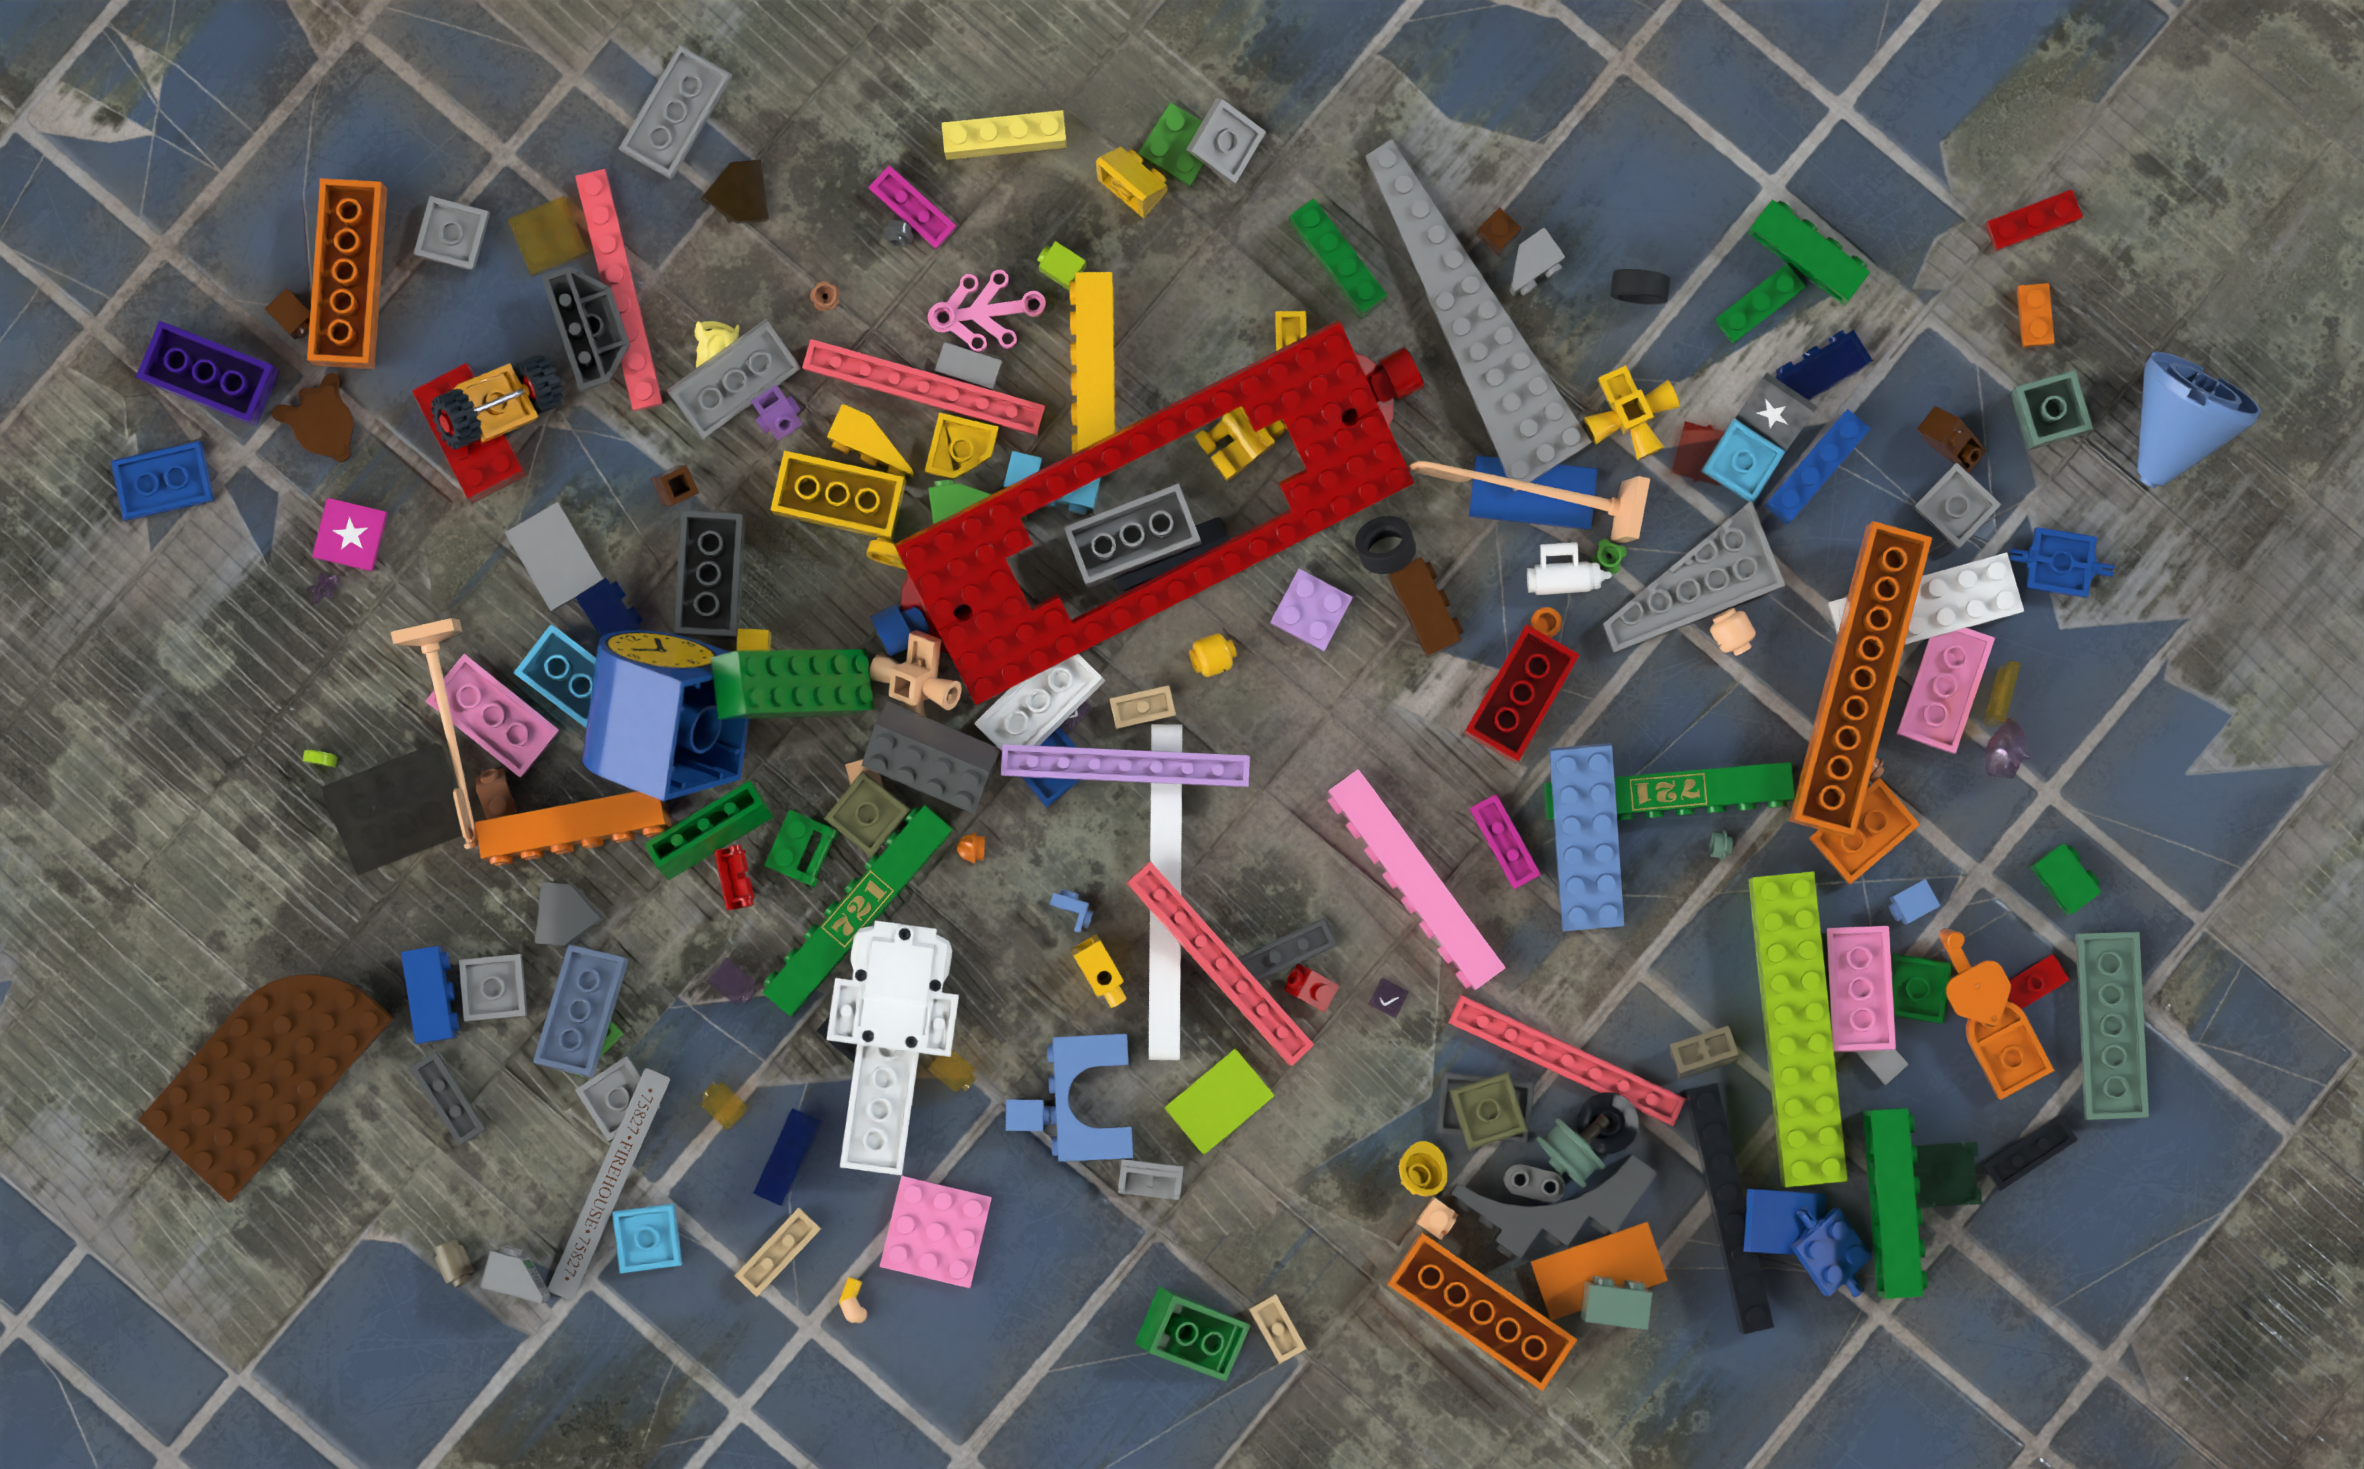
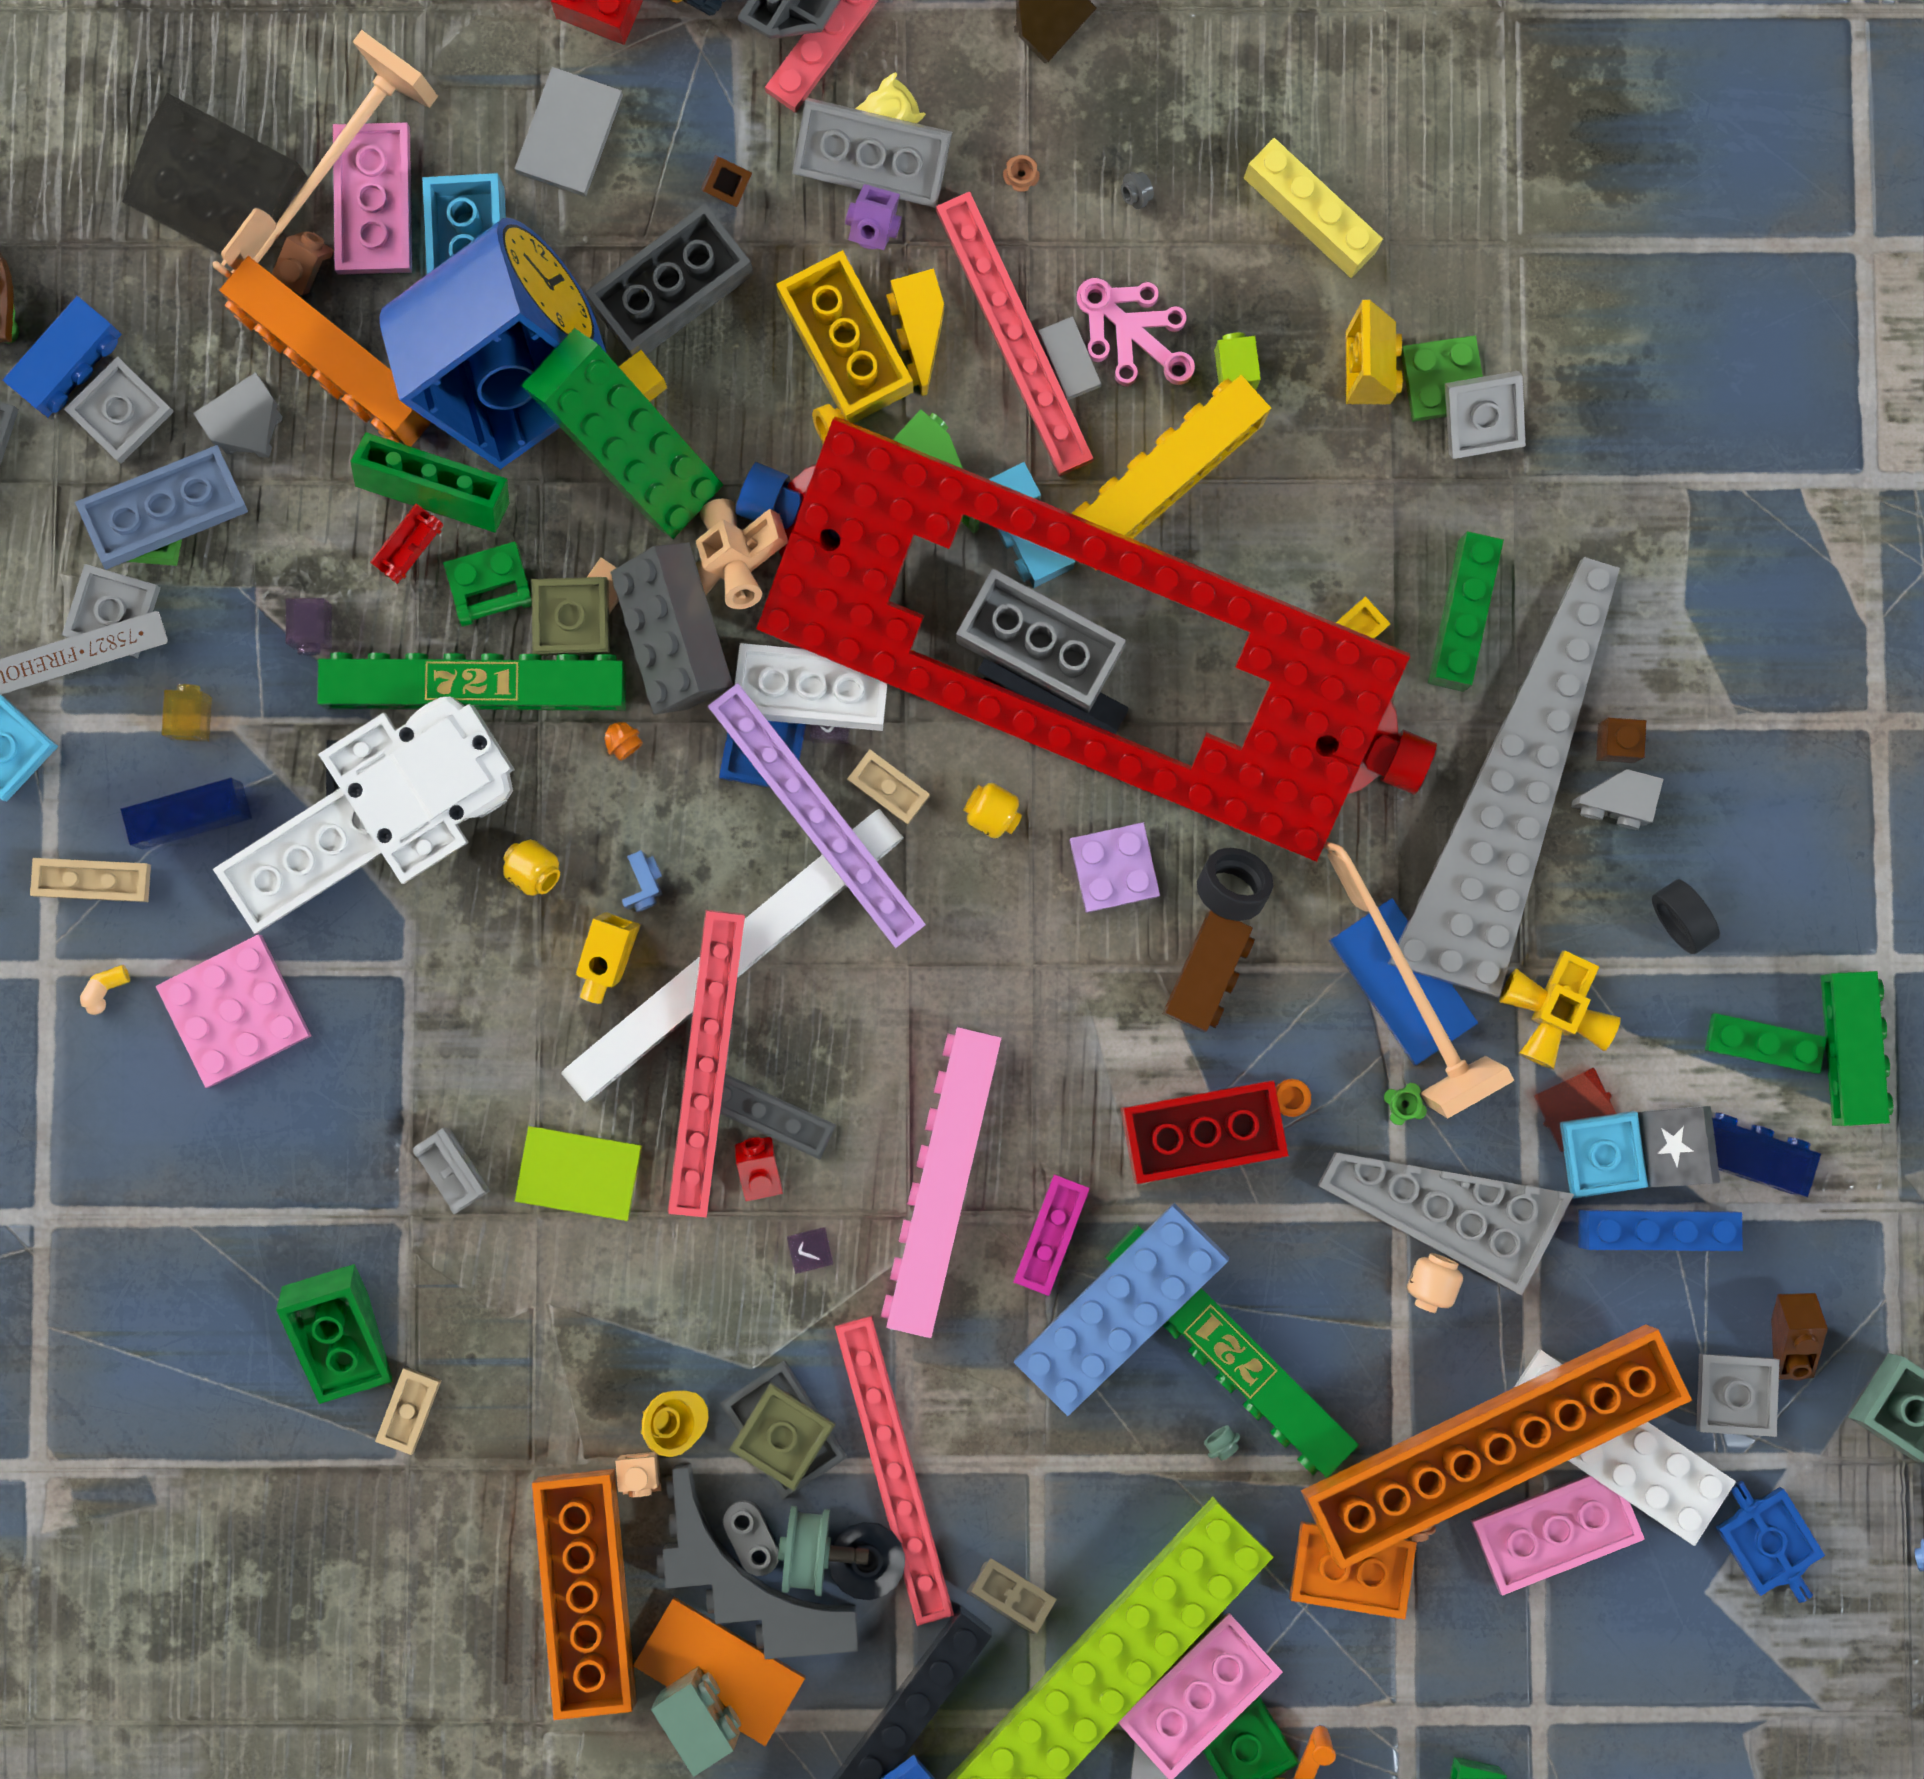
camera: 40 degrees right, 0 degrees up
(320, 758) = (200, 75): lime tile -> none
(607, 609) = (560, 217): clear blue brick -> none
(912, 207) = (1172, 182): dark pink plate -> none
(954, 1071) = (396, 901): clear yellow brick -> none
(959, 446) = (987, 412): yellow plate -> none
(1004, 970) = (531, 867): none -> yellow head
(1026, 1115) = (412, 1002): medium blue brick -> none
(1070, 1058) = (429, 1068): medium blue arch -> none
(1246, 445) = (1217, 676): yellow hips -> none
(1564, 577) = (1349, 1078): white piece -> none
(1913, 902) = (1325, 1676): medium blue brick -> none
(2001, 694) = (1598, 1593): clear yellow tile -> none
(2006, 750) = (1547, 1643): clear purple hair -> none

